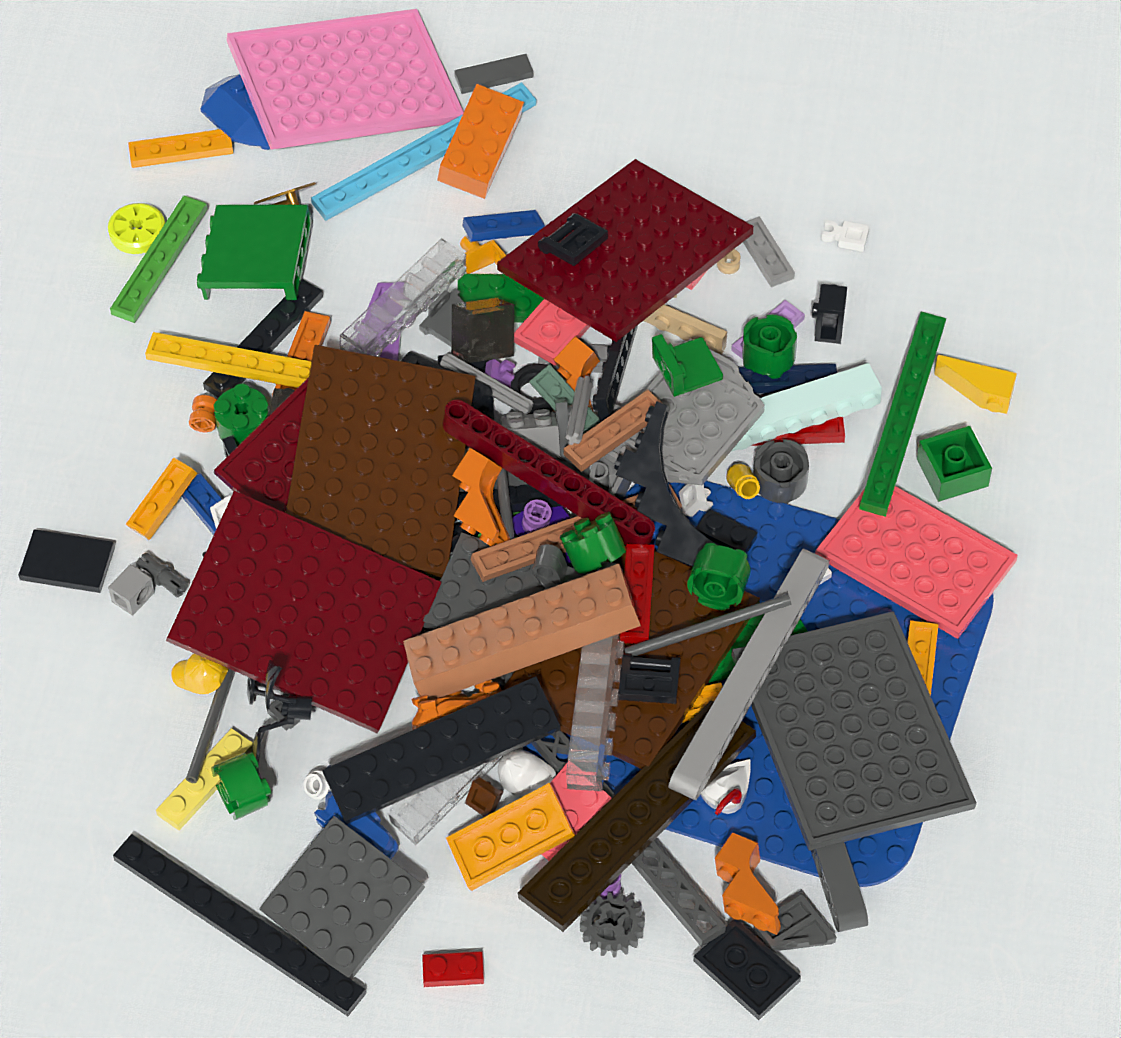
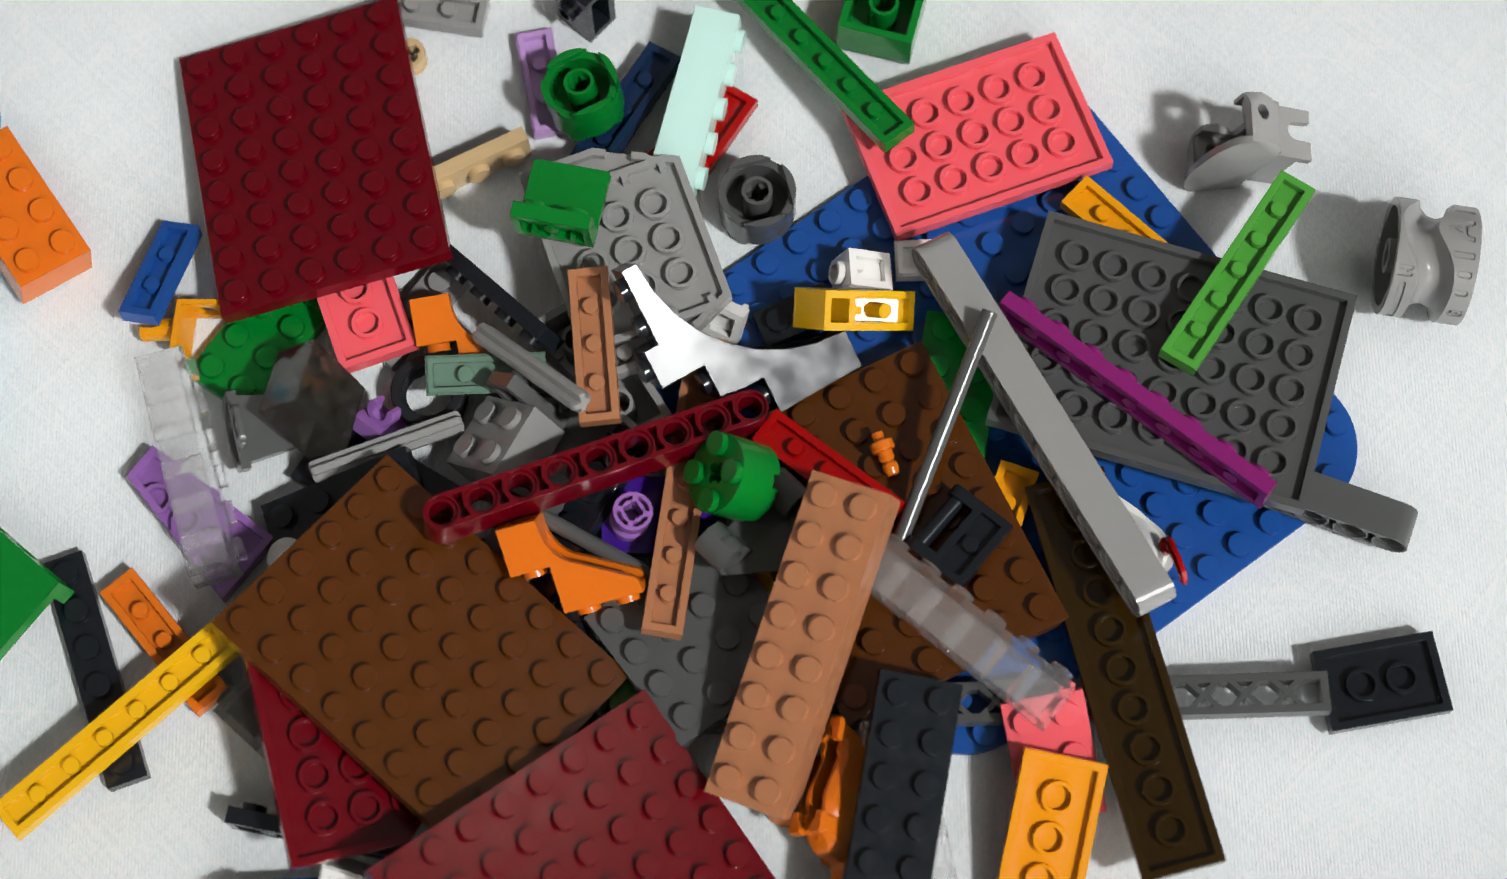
camera: 55 degrees left, 15 degrees up
(203, 416) = (158, 817): orange wheel -> none
(240, 412) = (187, 756): green brick -> none
(483, 797) = (966, 831): reddish brown tile -> none
(524, 772) = (975, 758): white piece -> none
(576, 245) = (278, 206): black plate -> none
(610, 928) = (1249, 796): dark grey gear -> none
(674, 612) = (882, 449): none -> orange piece
(719, 576) = (882, 366): green brick -> none
(738, 535) = (853, 309): none -> yellow slope
(743, 481) = (741, 249): yellow piece -> none
(745, 895) = (1301, 621): orange arch -> none
(779, 547) = (861, 270): none -> white bracket
(799, 928) = (1359, 595): dark grey wing -> none
(804, 722) = (1145, 406): none -> magenta plate
(933, 725) = (1236, 273): none -> bright green plate
(1016, 692) = (1251, 151): none -> light grey piece
(1033, 829) = (1426, 261): none -> light grey piece

